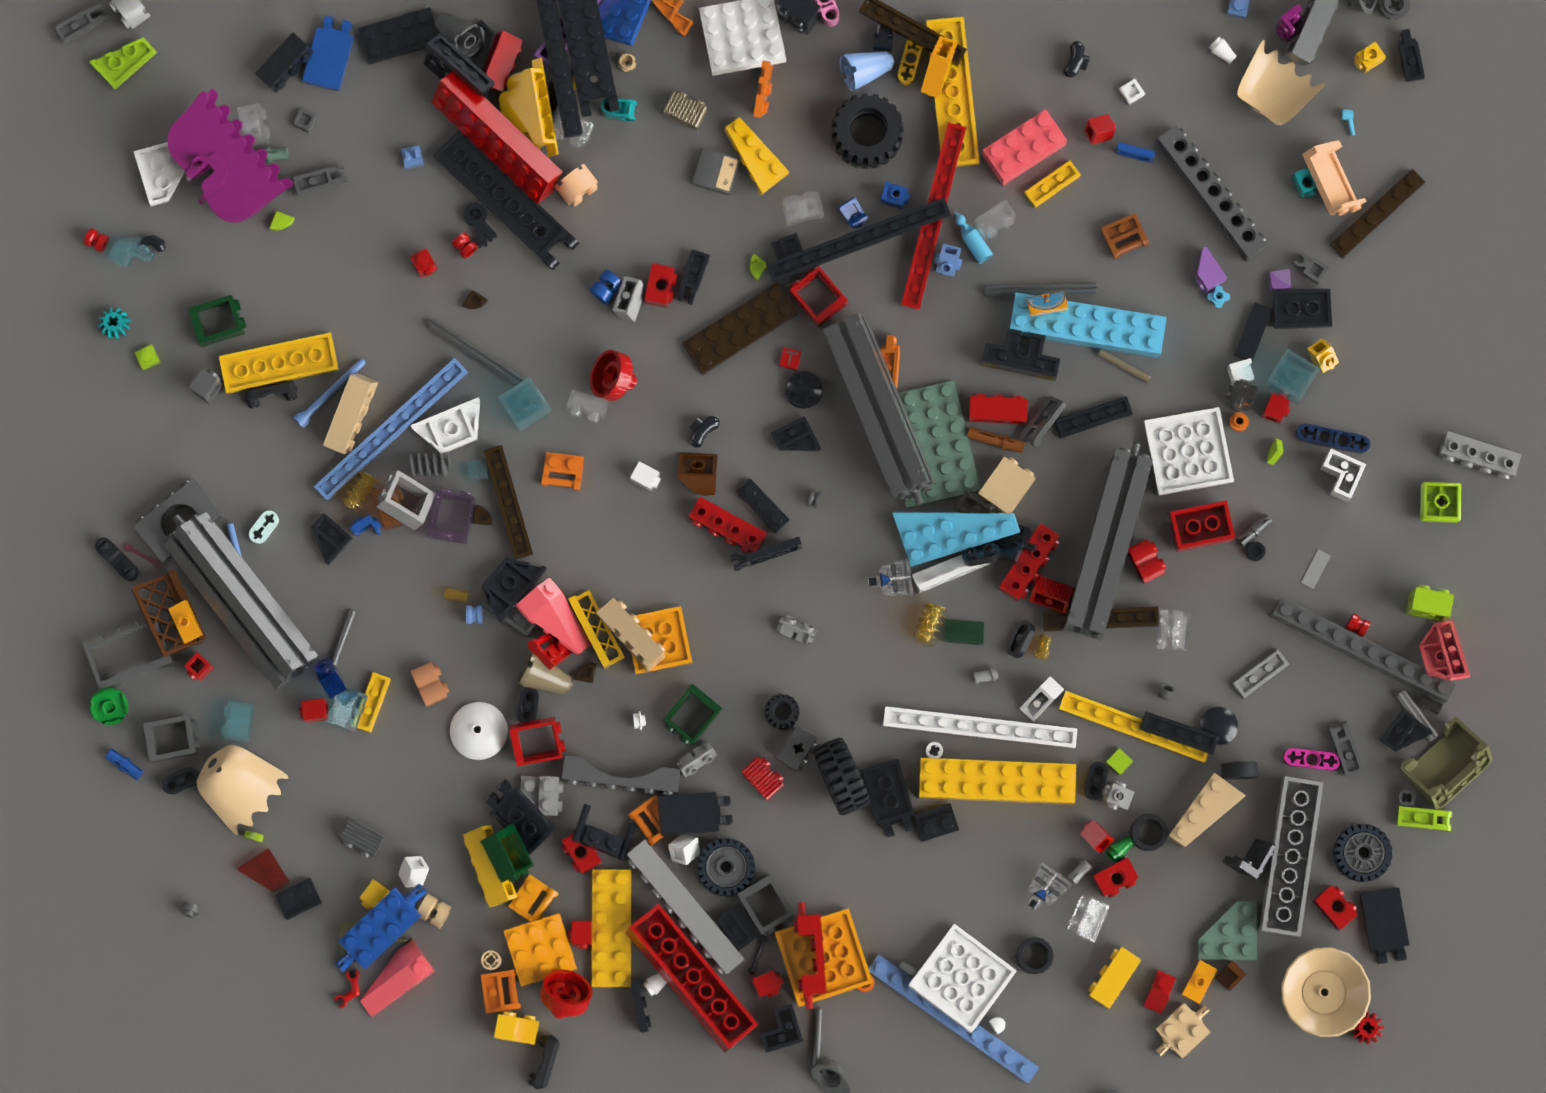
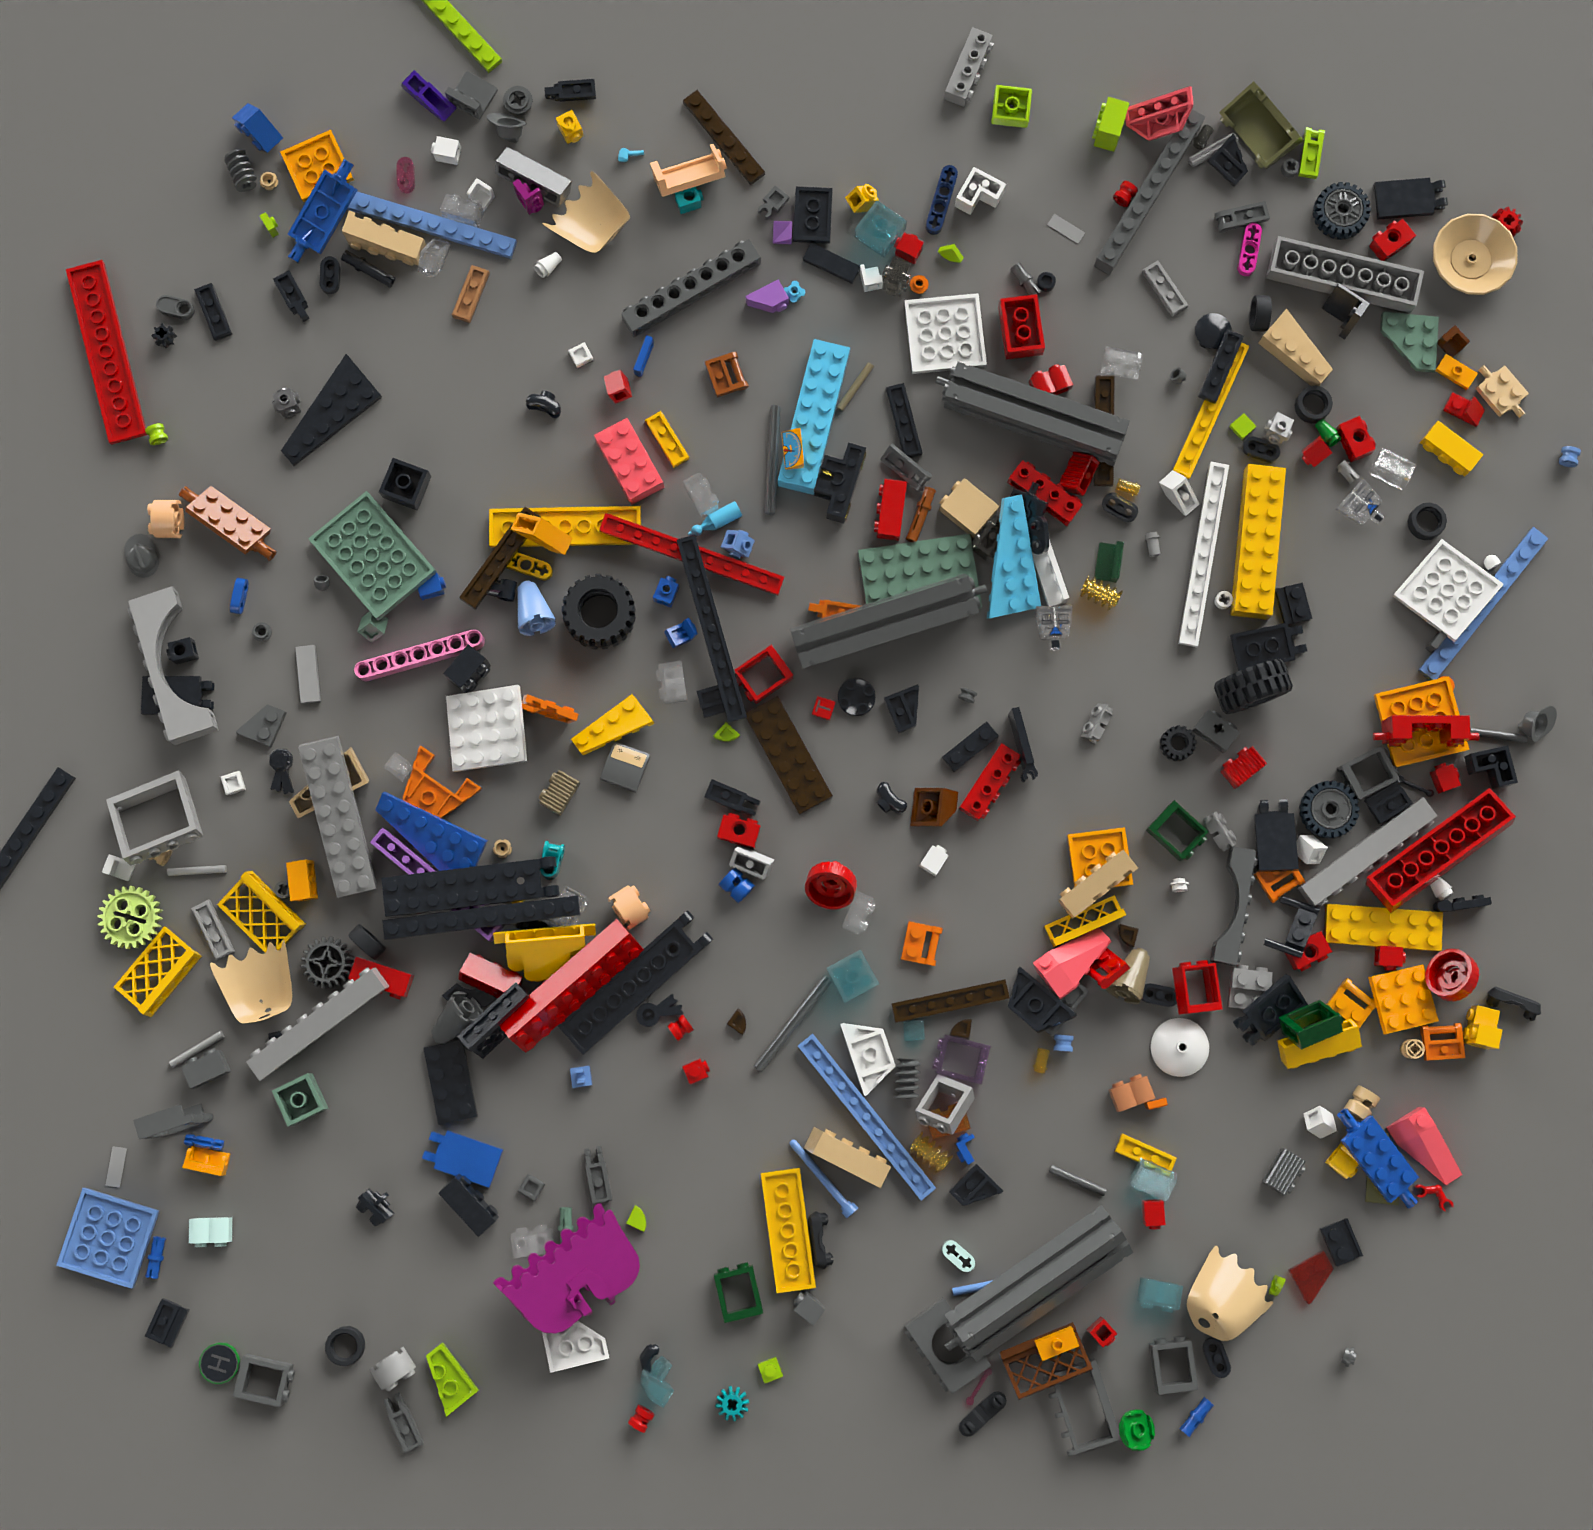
camera: 90 degrees left, 0 degrees up
(330, 677) = (1123, 1194): clear blue brick -> none
(422, 712) = (1152, 1104): none -> orange tile

